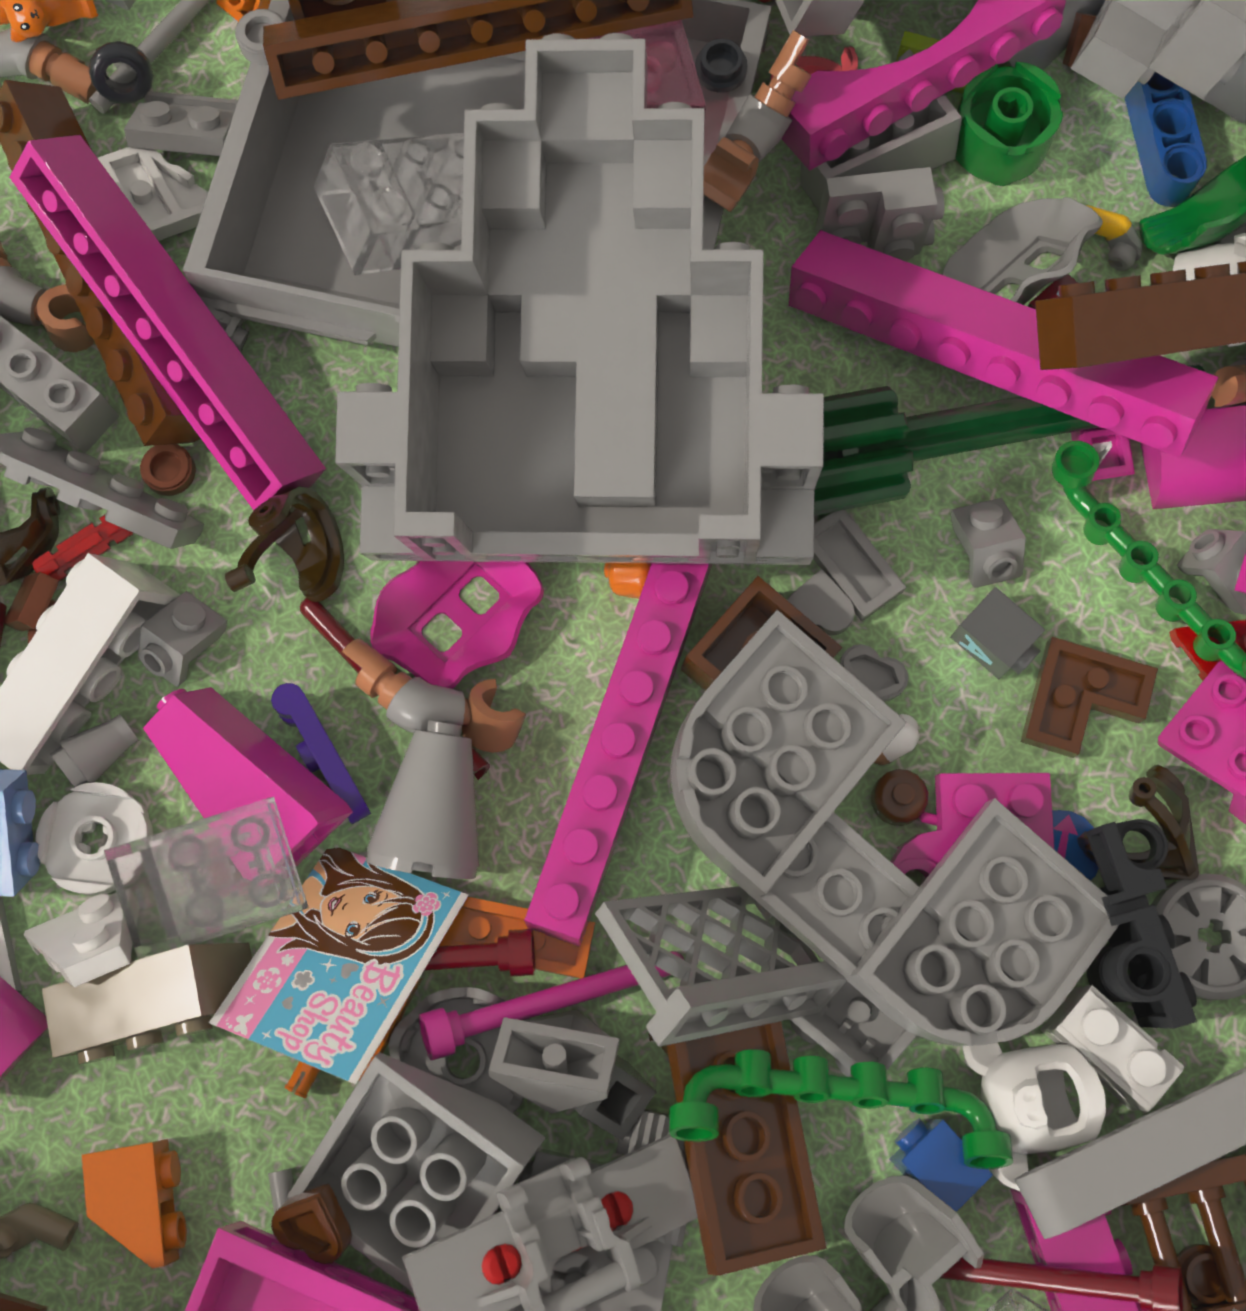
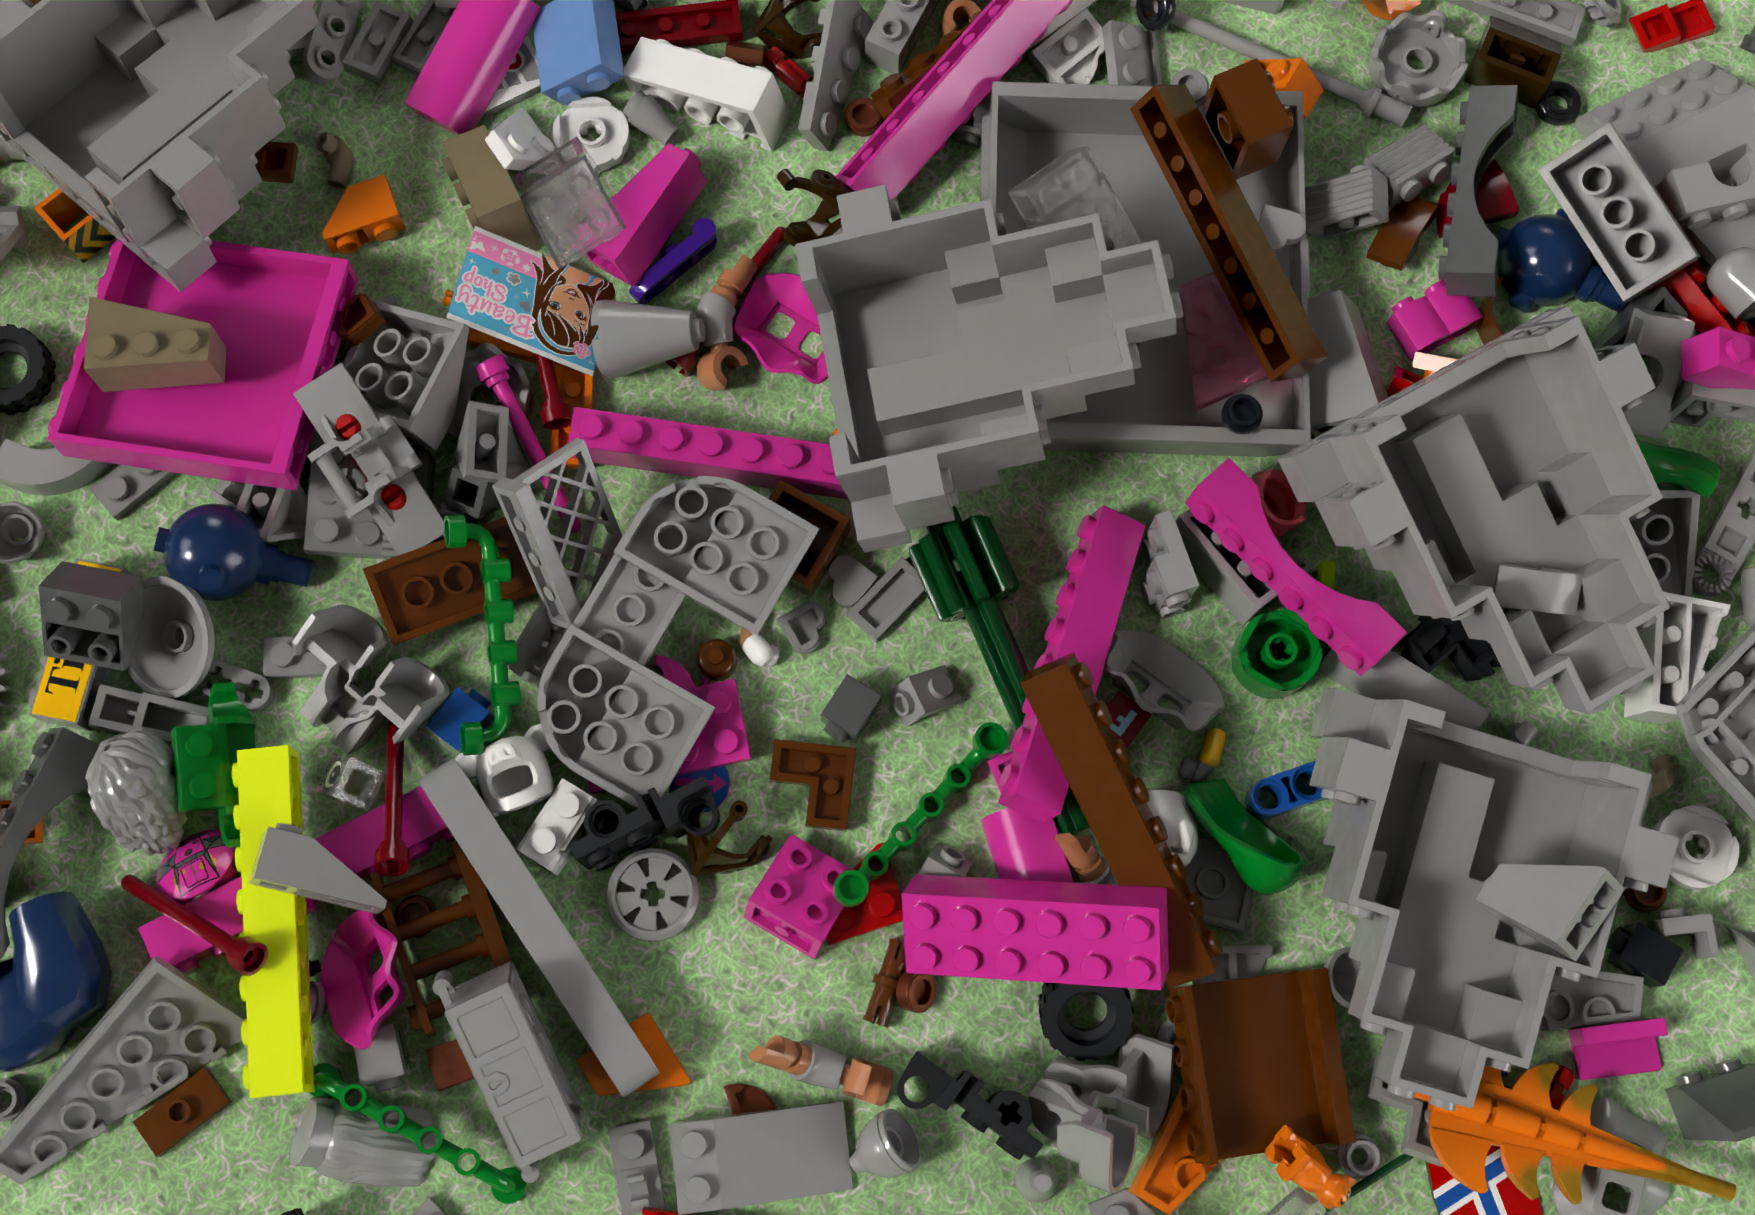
camera: 75 degrees right, 0 degrees up
(178, 636) = (741, 152): light grey bracket -> none
(756, 128) = (1188, 445): nougat piece -> none

